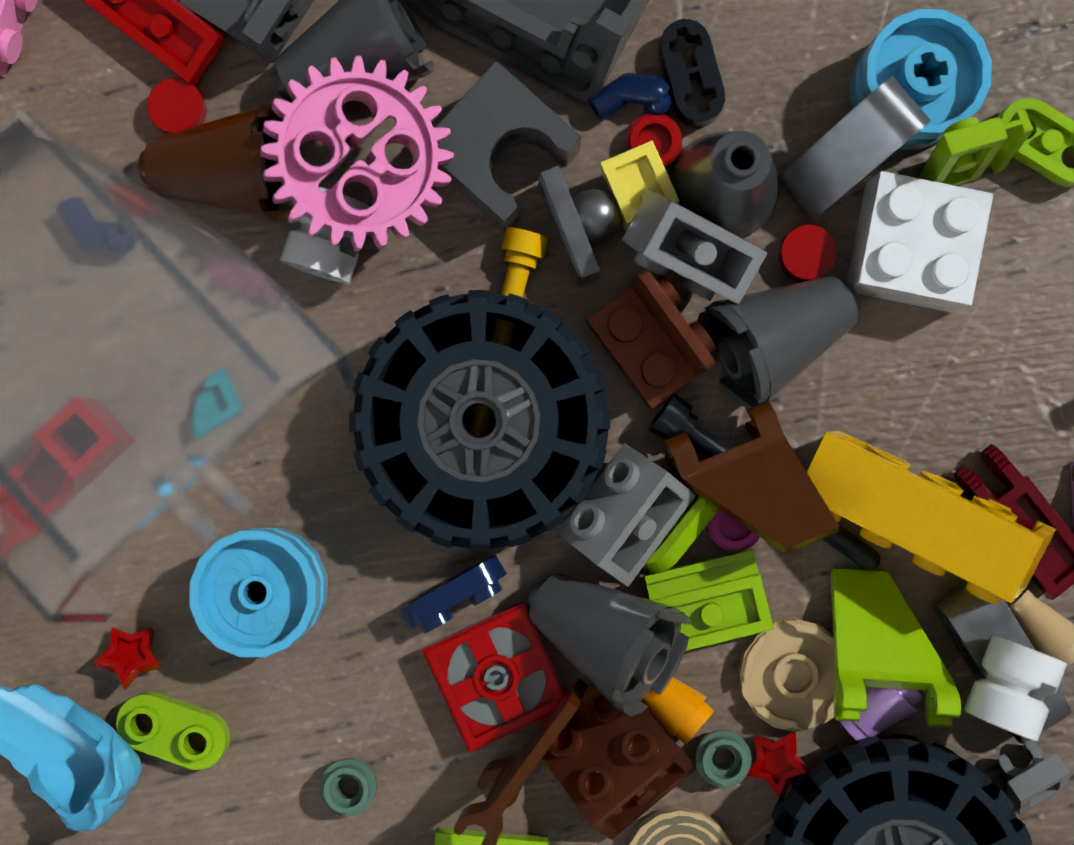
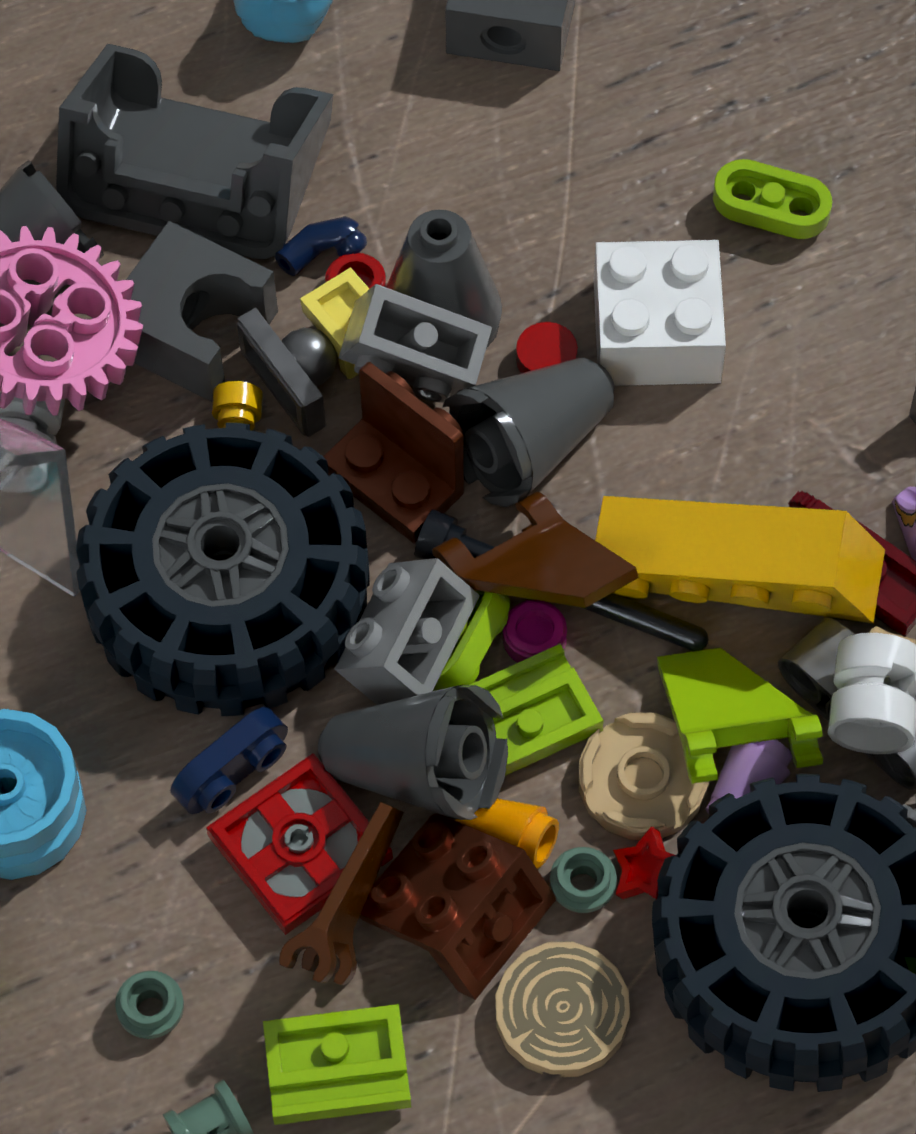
camera: 10 degrees left, 25 degrees down
(704, 70) = (391, 206): black beam -> none
(853, 148) = (560, 229): flat silver beam -> none
(936, 62) = (617, 164): medium azure wheel -> none
(974, 146) = (692, 200): lime plate -> none

